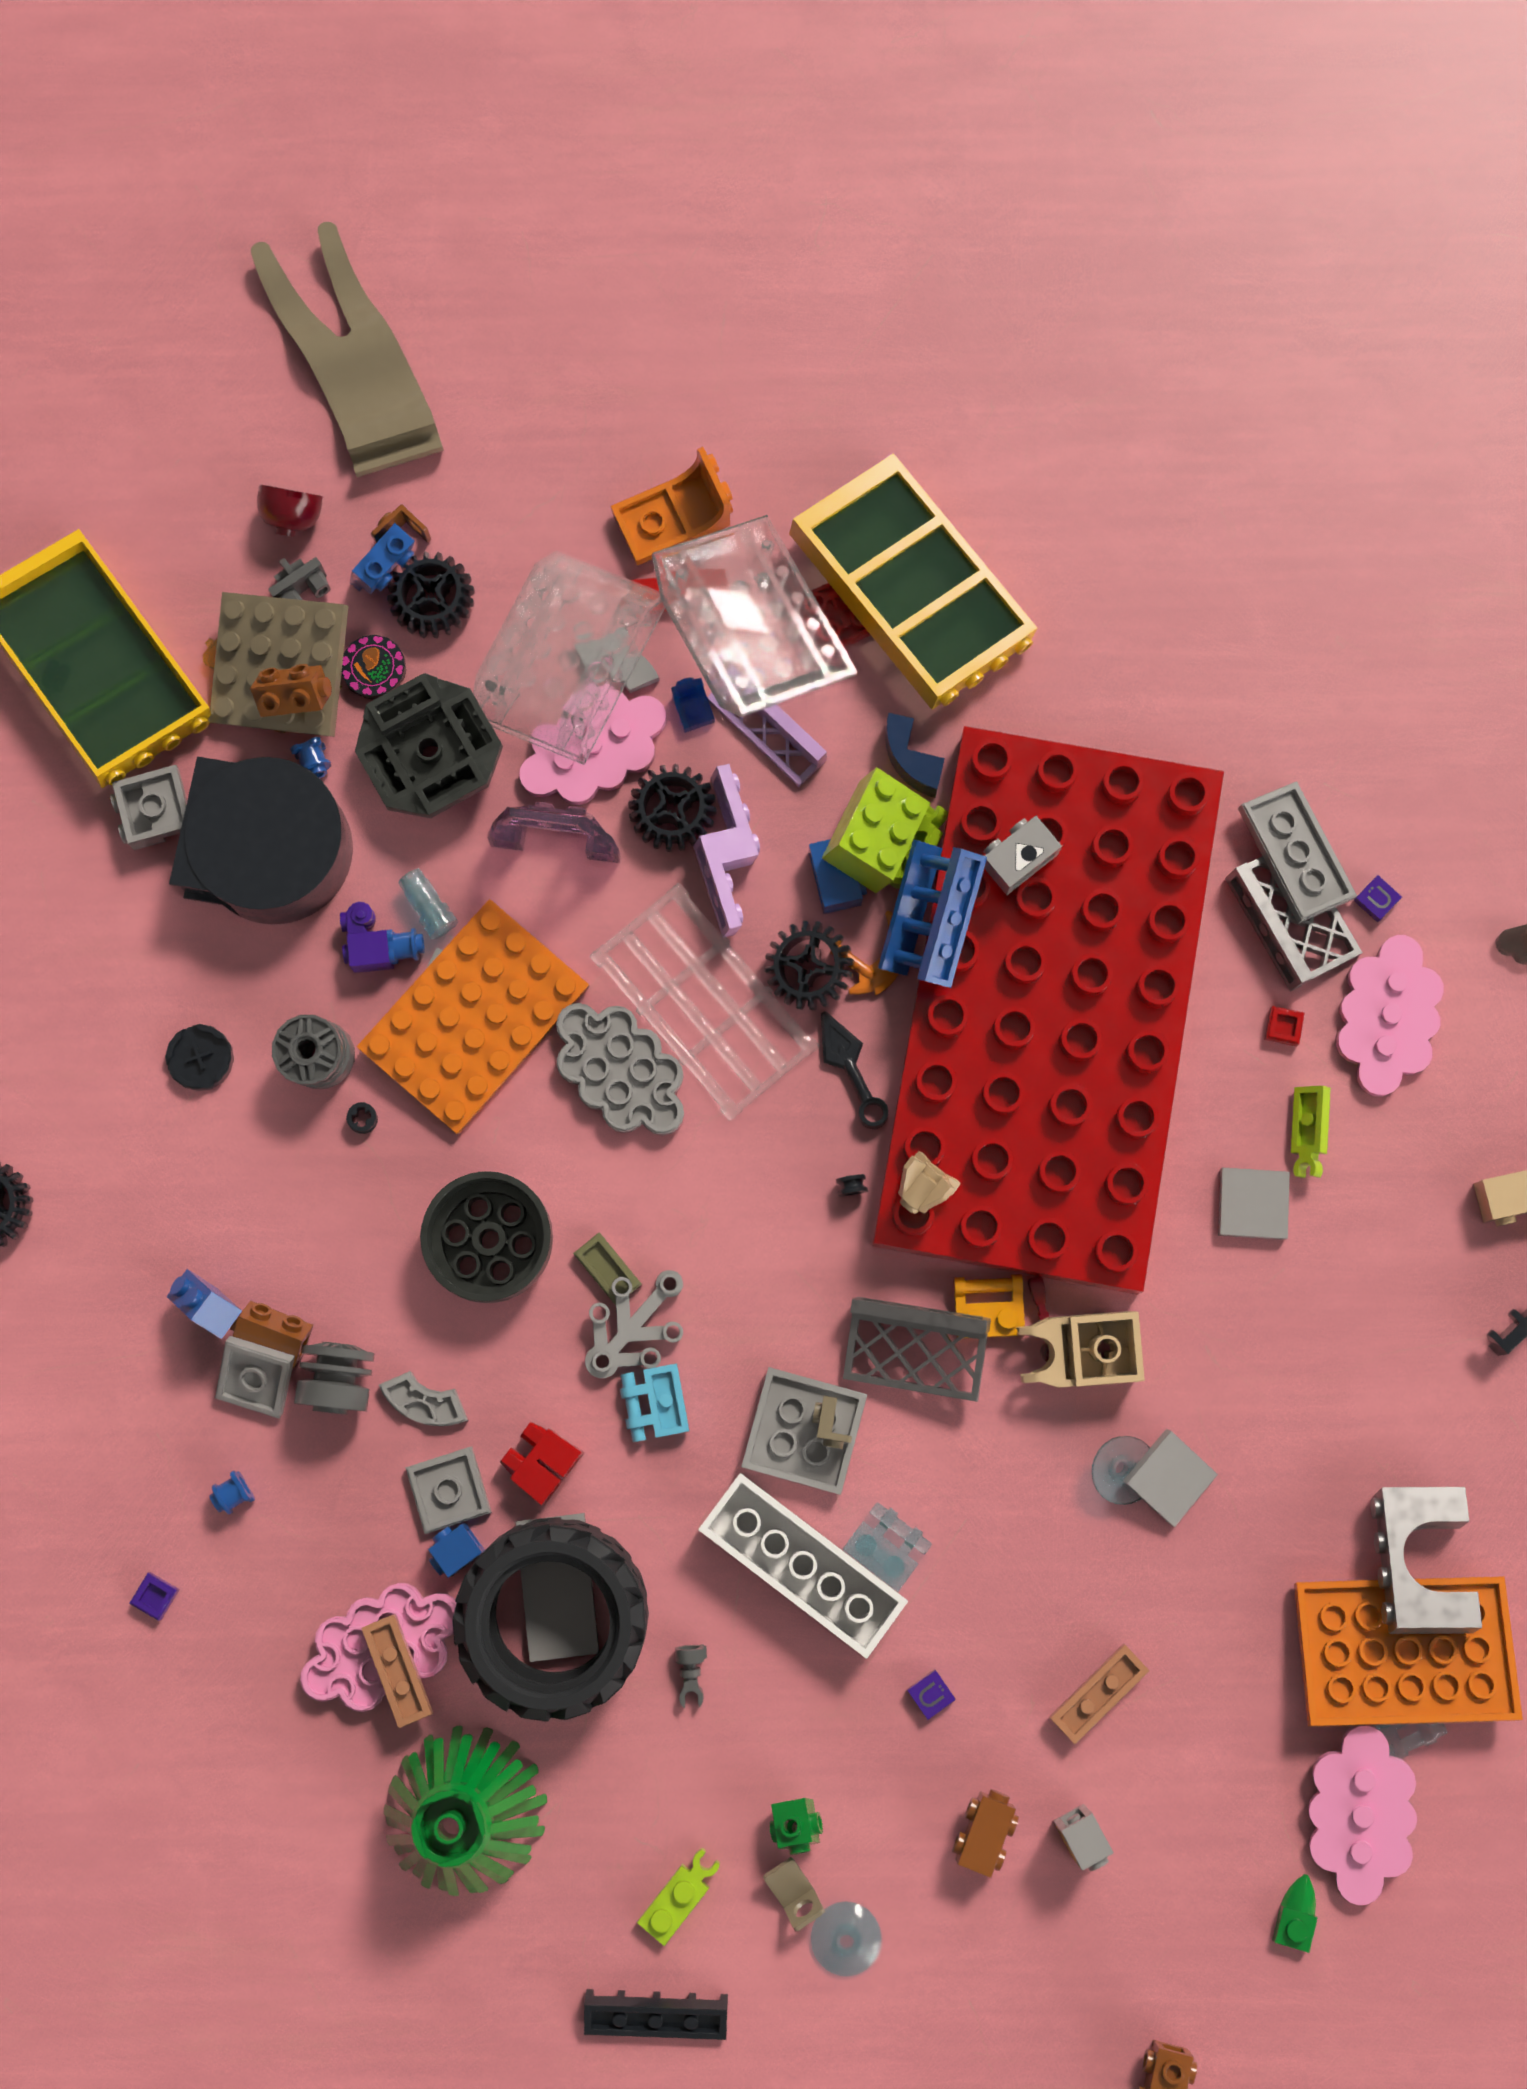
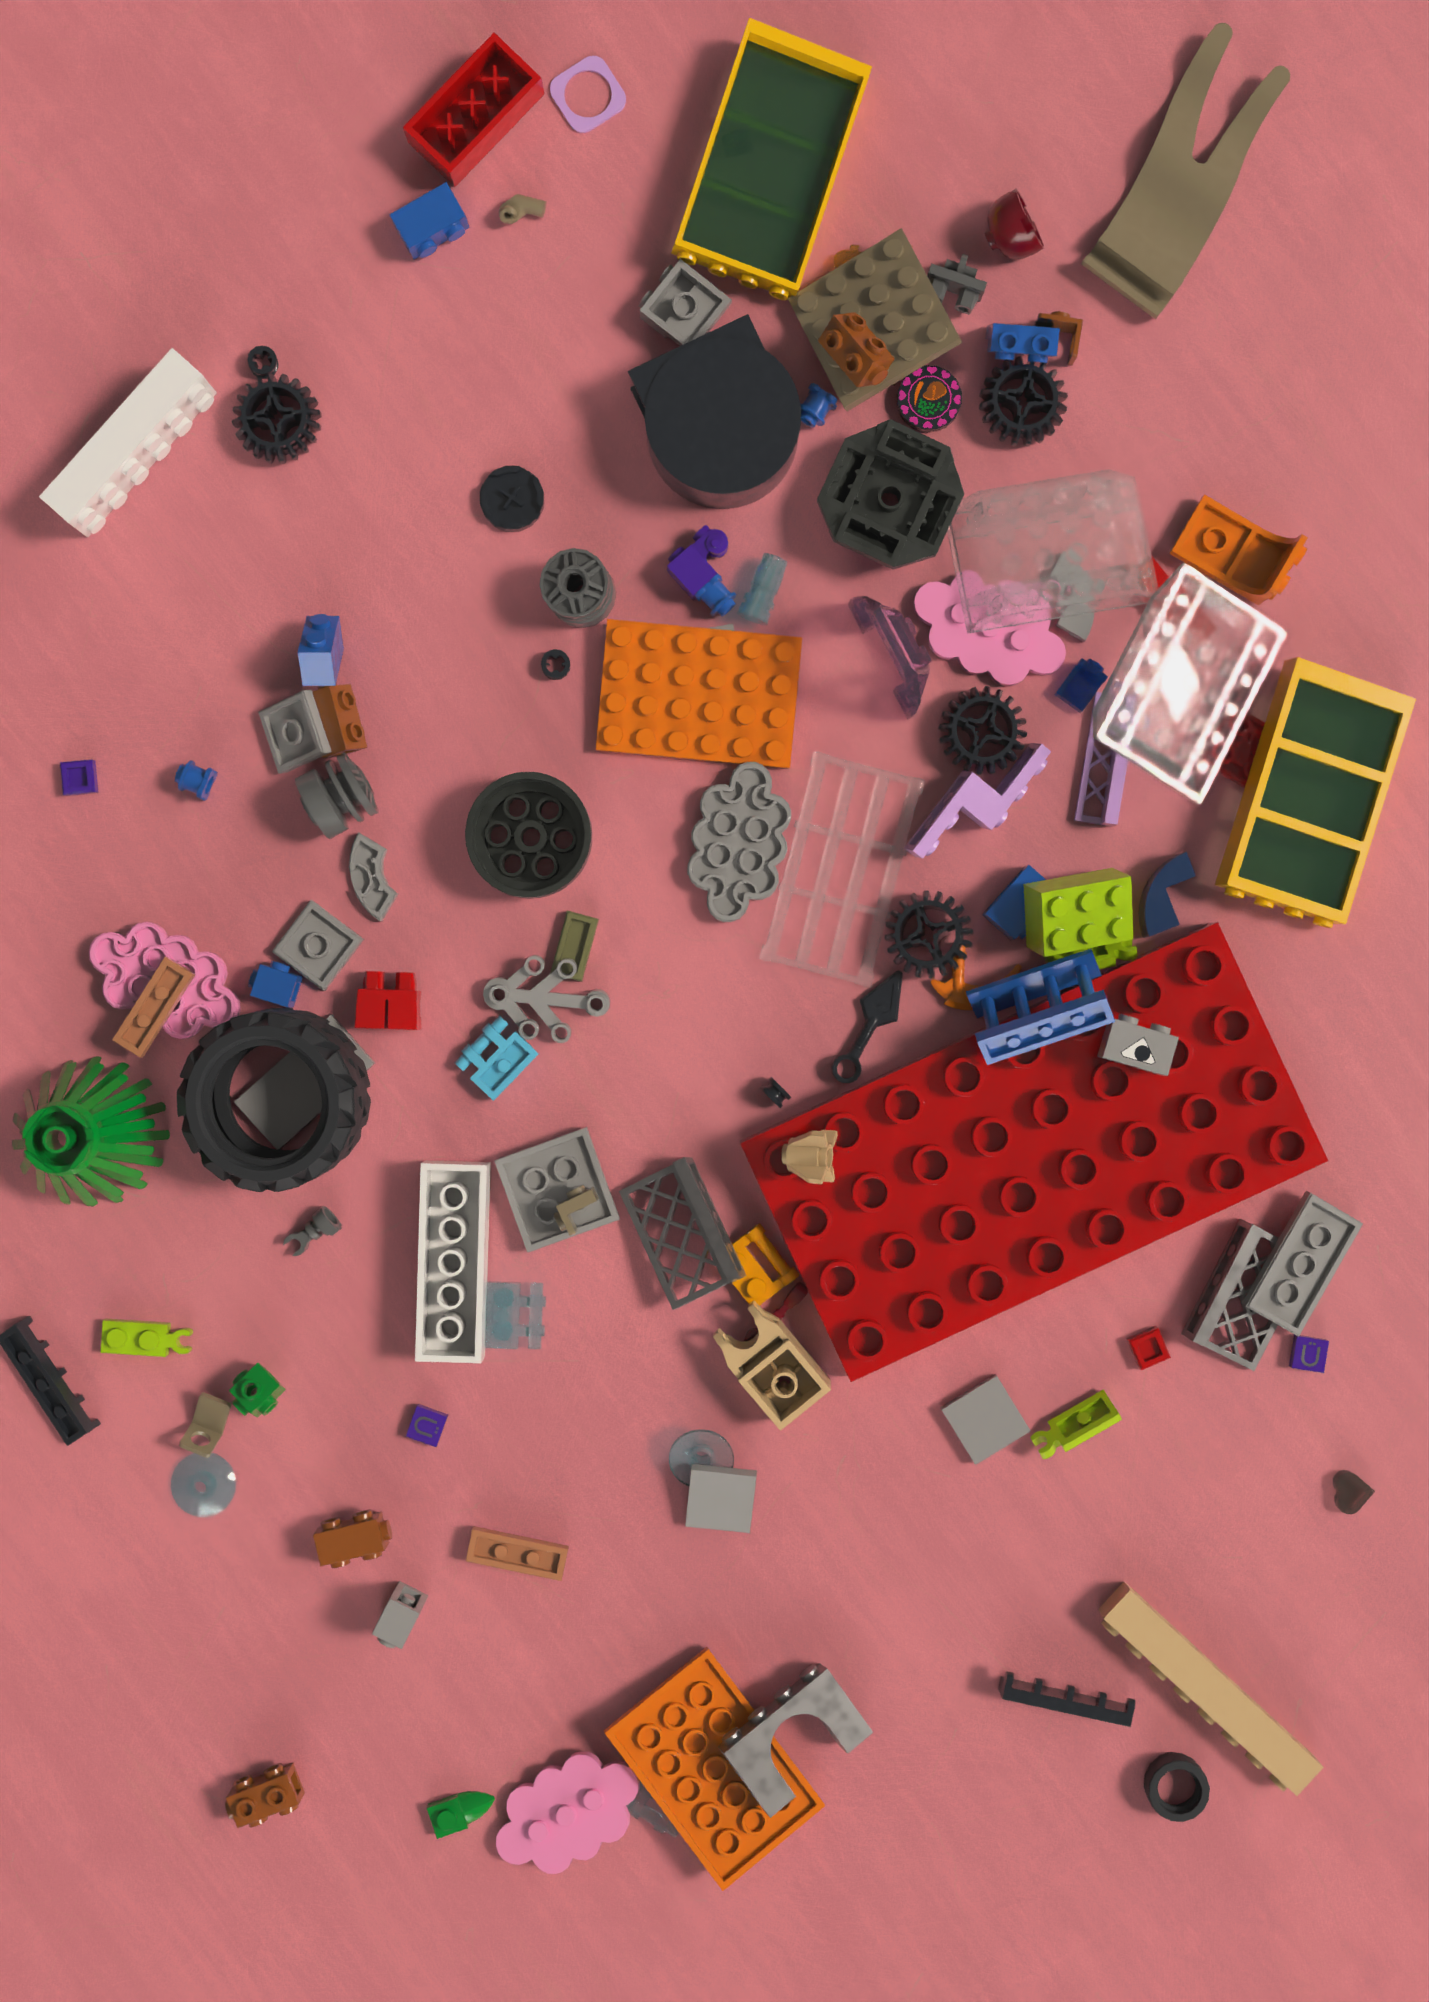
camera: 55 degrees right, 10 degrees up
(1389, 1015) = (1216, 1426): bright pink plate -> none

